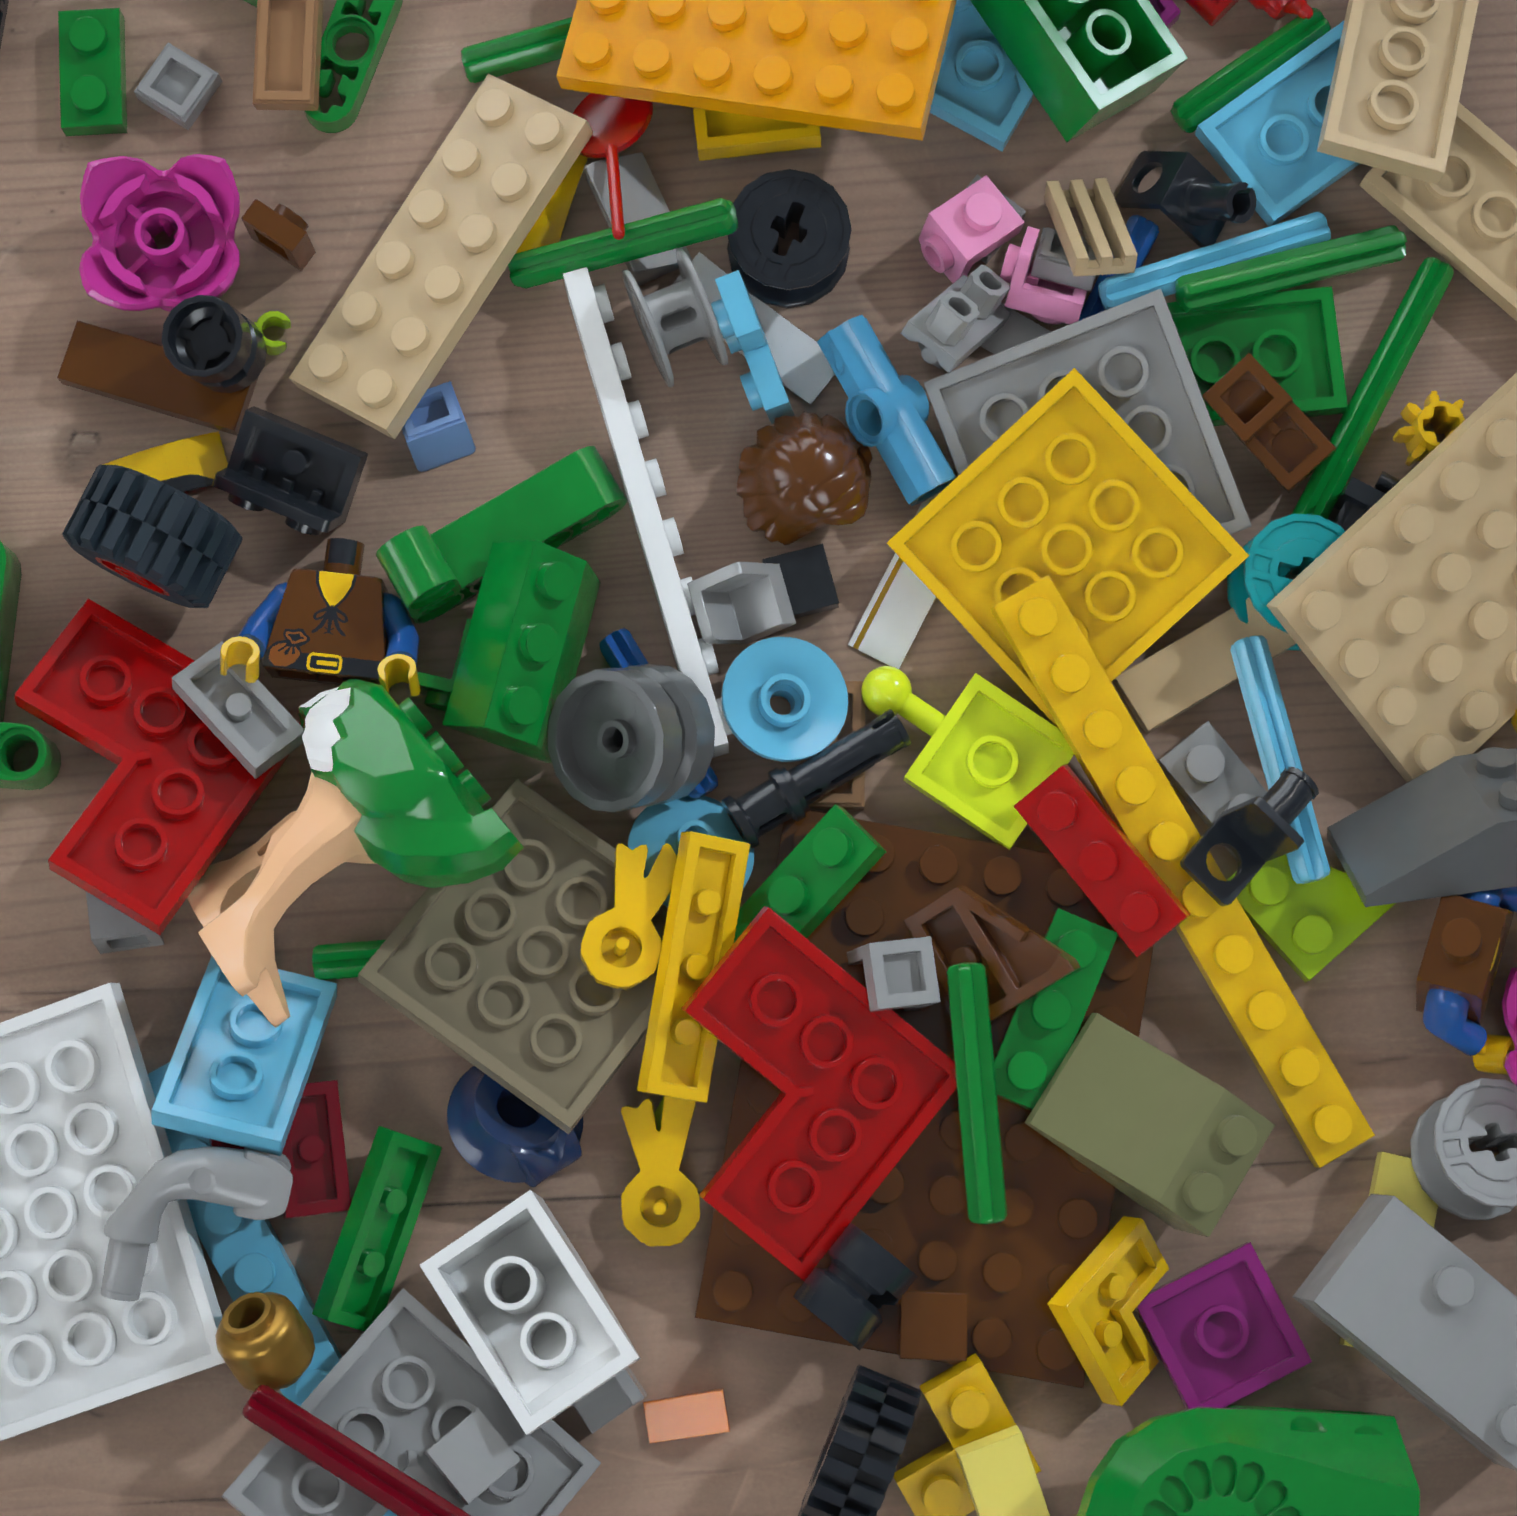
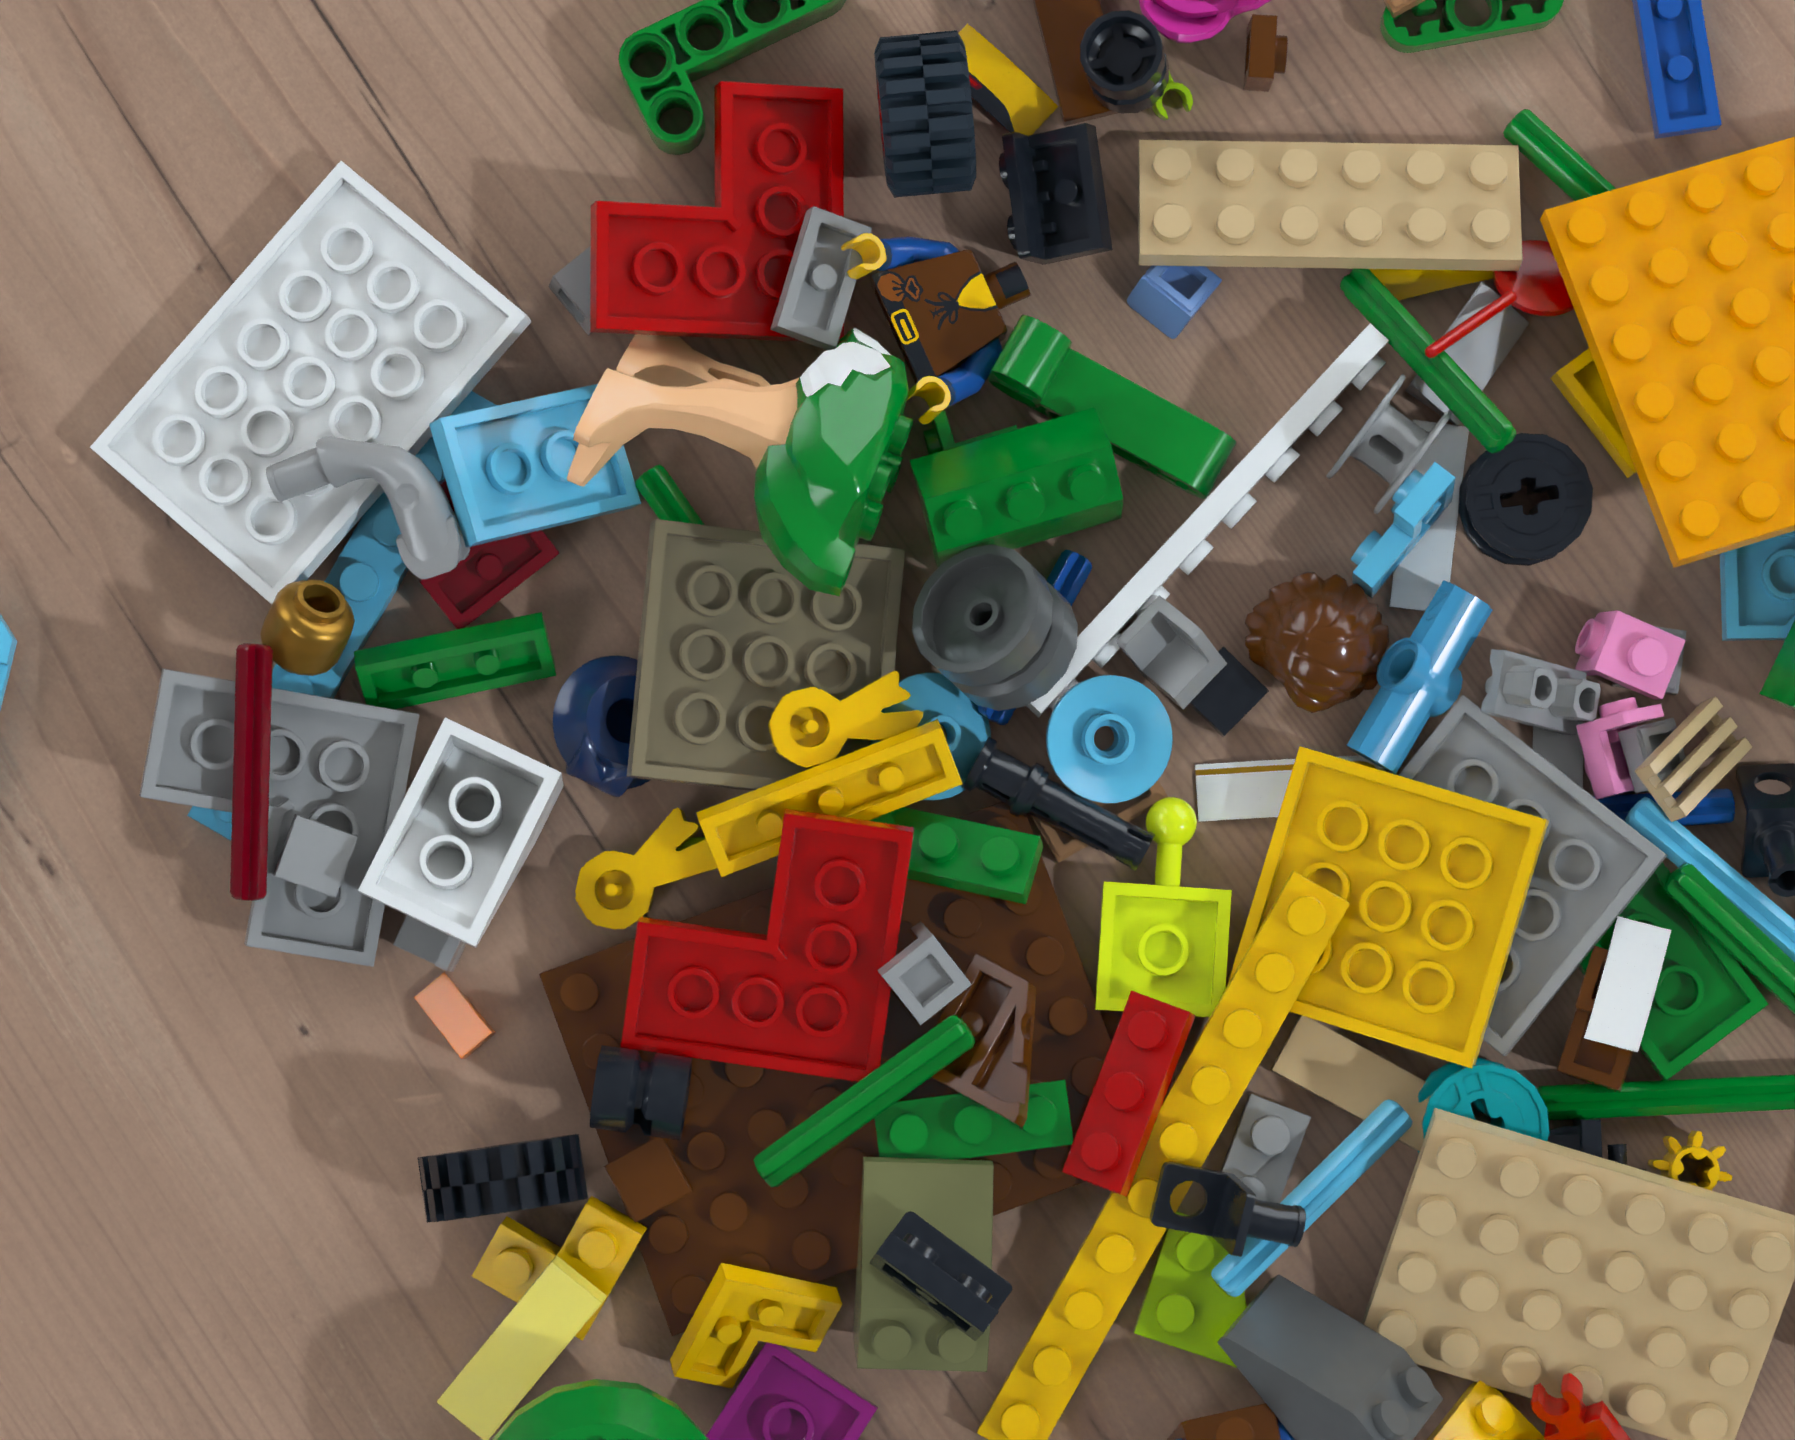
camera: 55 degrees right, 5 degrees up
(1173, 1111) = (942, 1275): none -> black bracket
(1252, 385) = (1628, 984): none -> white sticker

